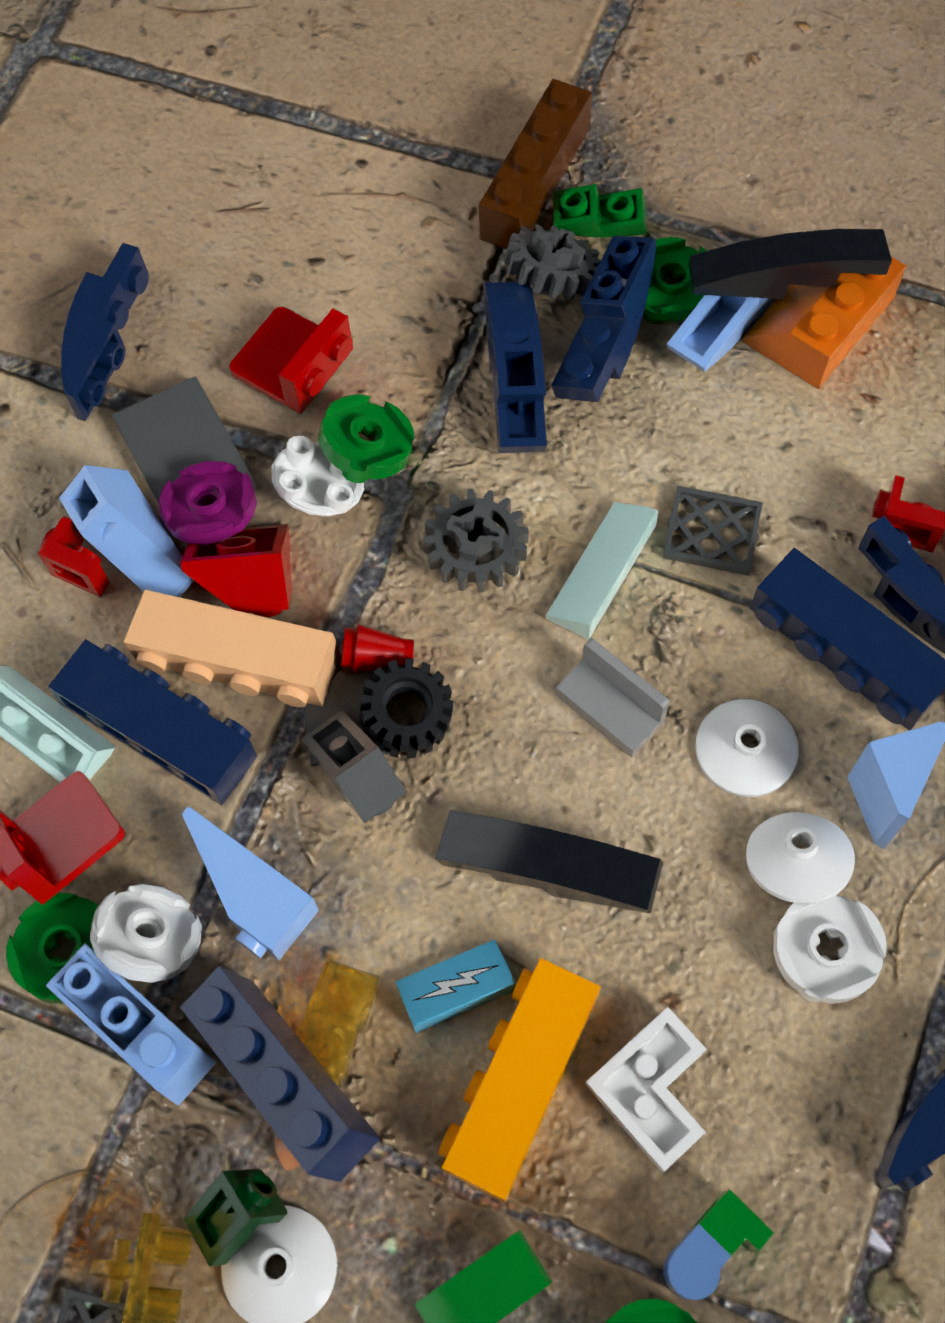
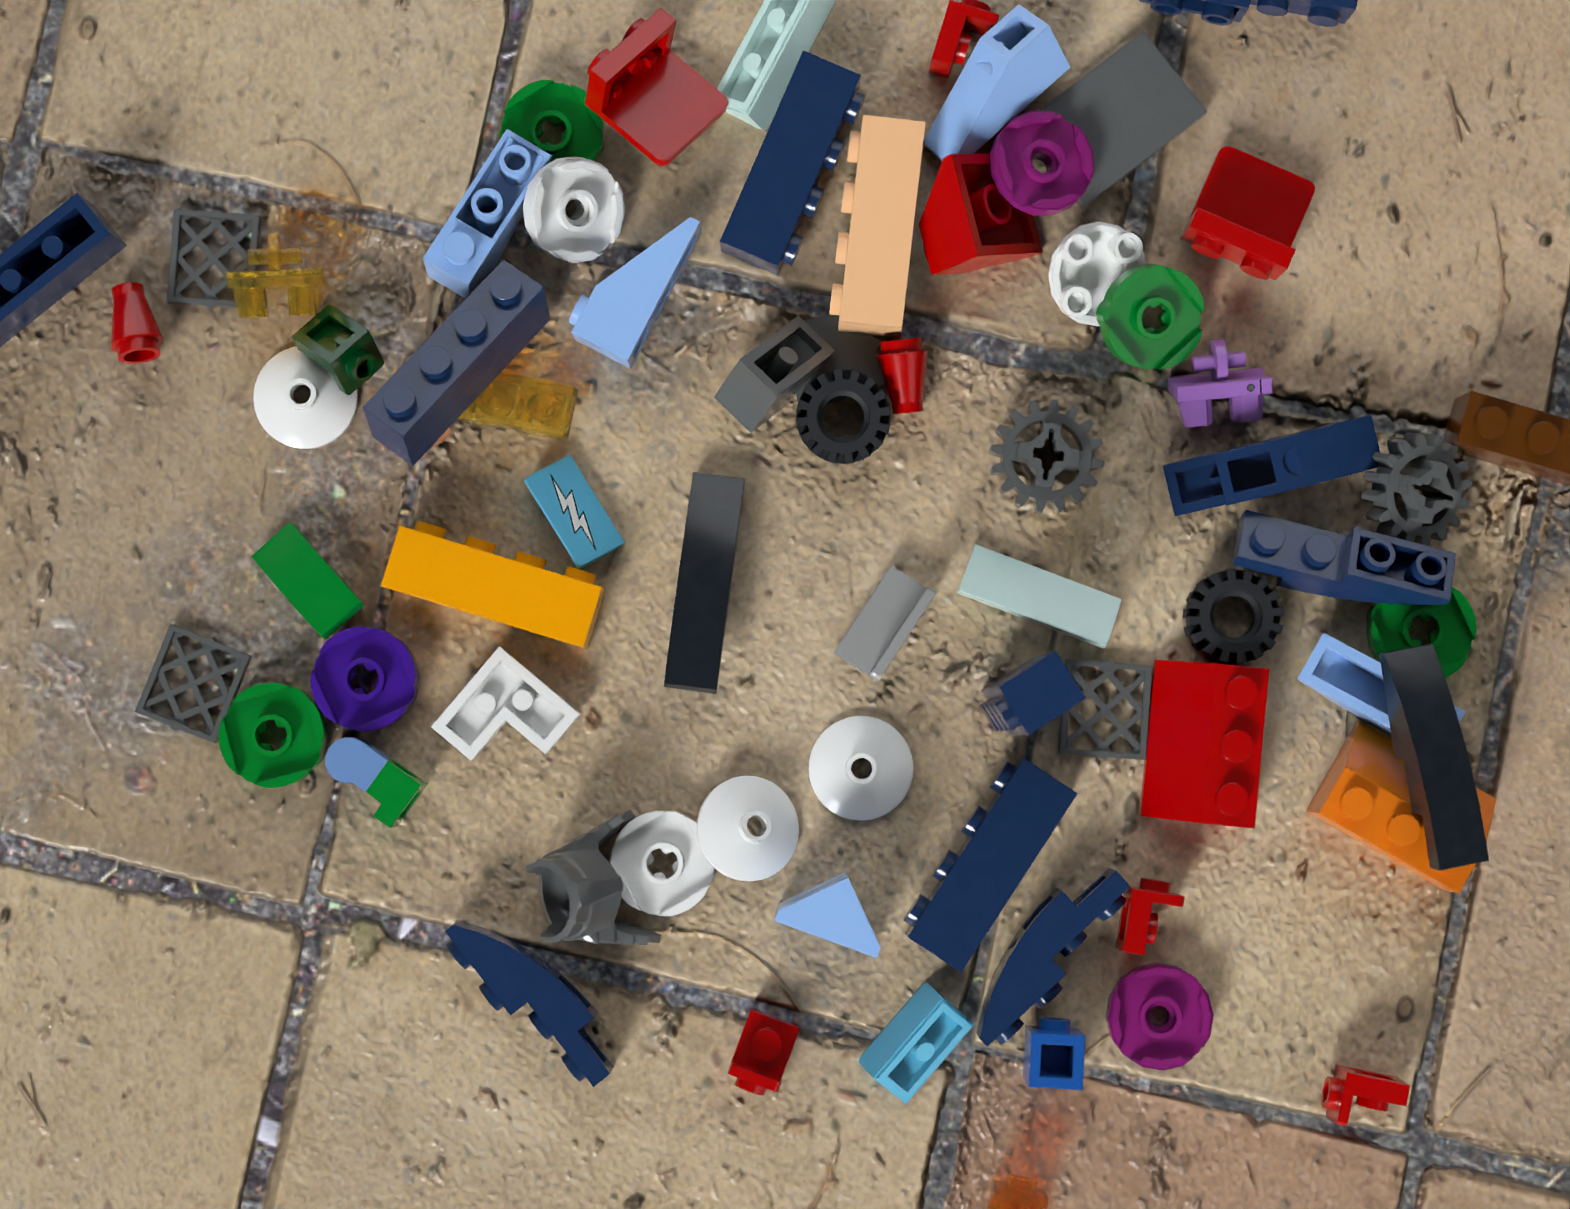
camera: 80 degrees right, 20 degrees up
(433, 394) = (1242, 387): none -> medium lavender hips
(598, 215) = (1507, 534): green slope -> none
(632, 1259) = (337, 668): none -> dark purple plate
(649, 392) = (1264, 611): none -> black tyre
(705, 550) = (1031, 695): none -> dark blue brick
(756, 446) = (1204, 743): none -> red slope
(858, 1027) = (585, 892): none -> dark grey helmet

